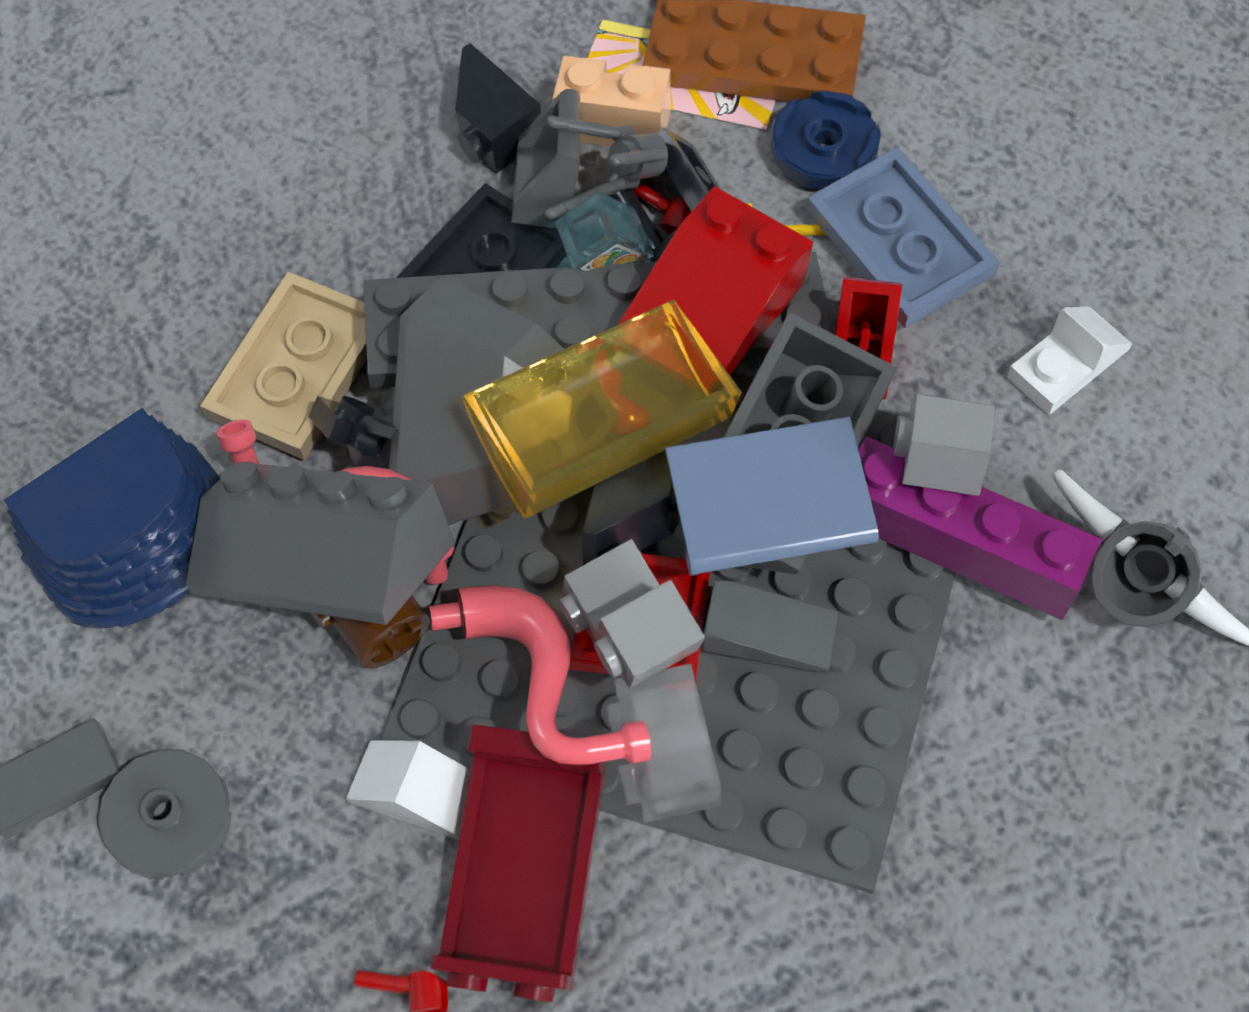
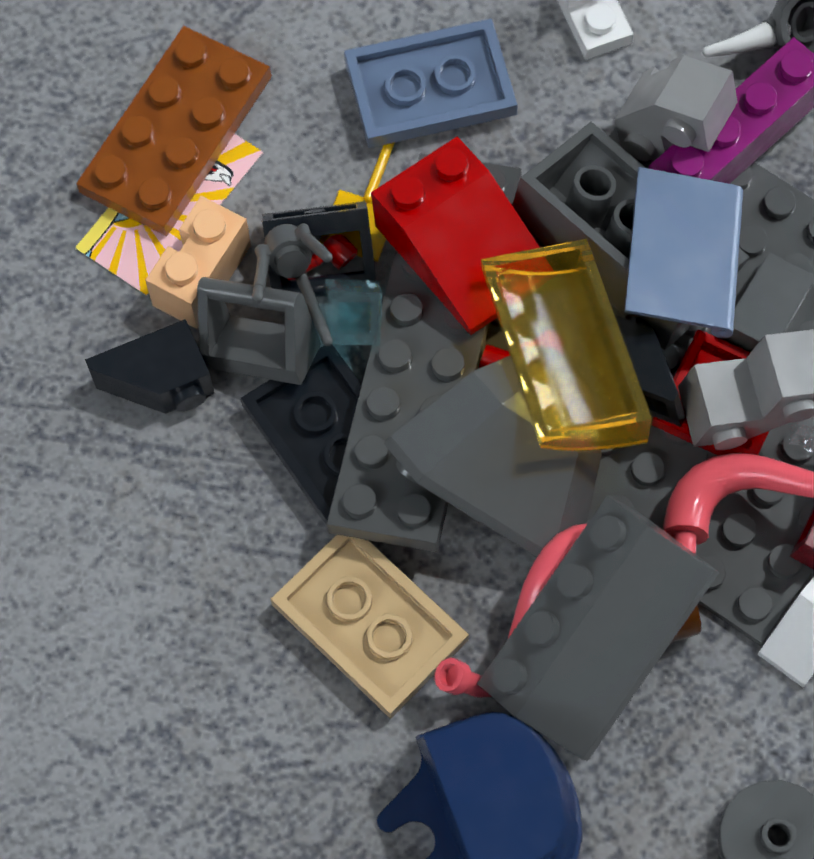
camera: 75 degrees left, 5 degrees up
(353, 425) = (471, 578): black plate -> none
(829, 120) = (299, 85): dark blue plate -> none
(869, 315) = (518, 135): red slope -> none

